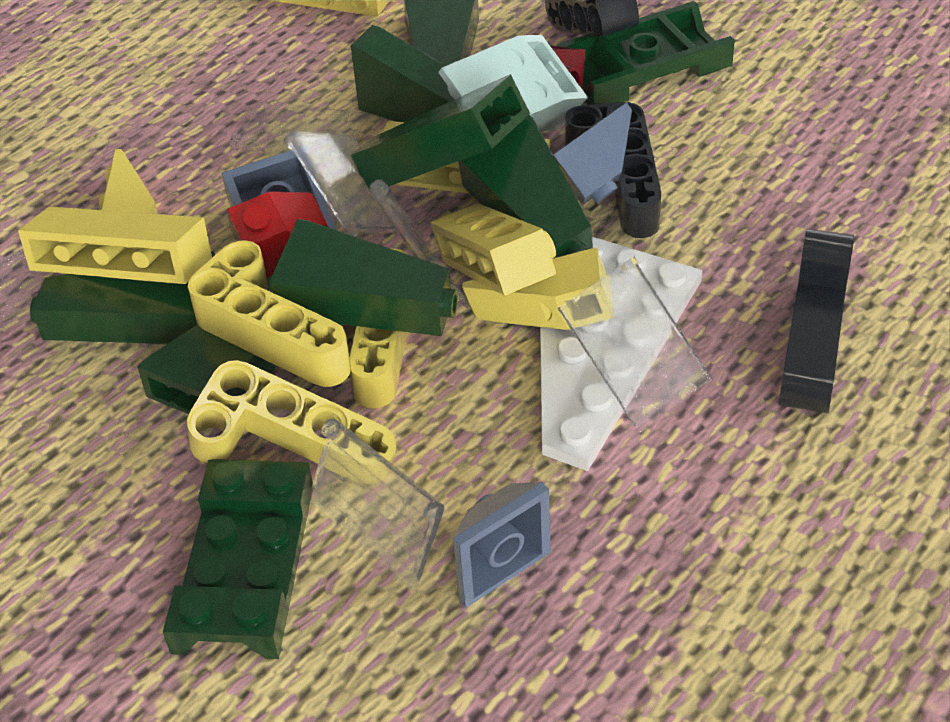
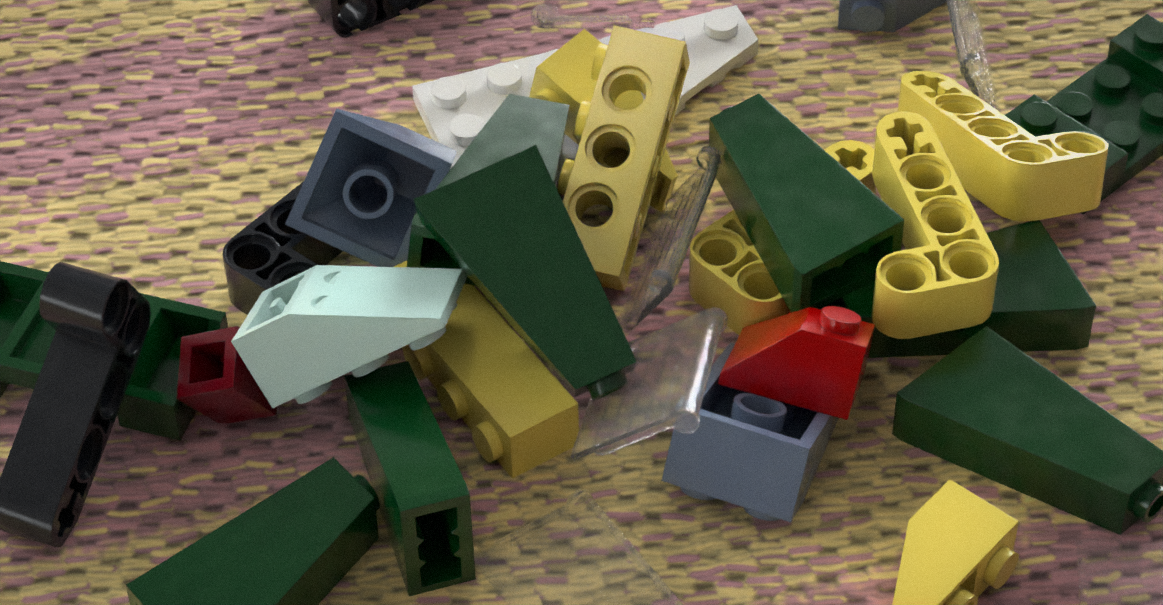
camera: 140 degrees left, 0 degrees up
(116, 244) = (1023, 438): light yellow brick -> none

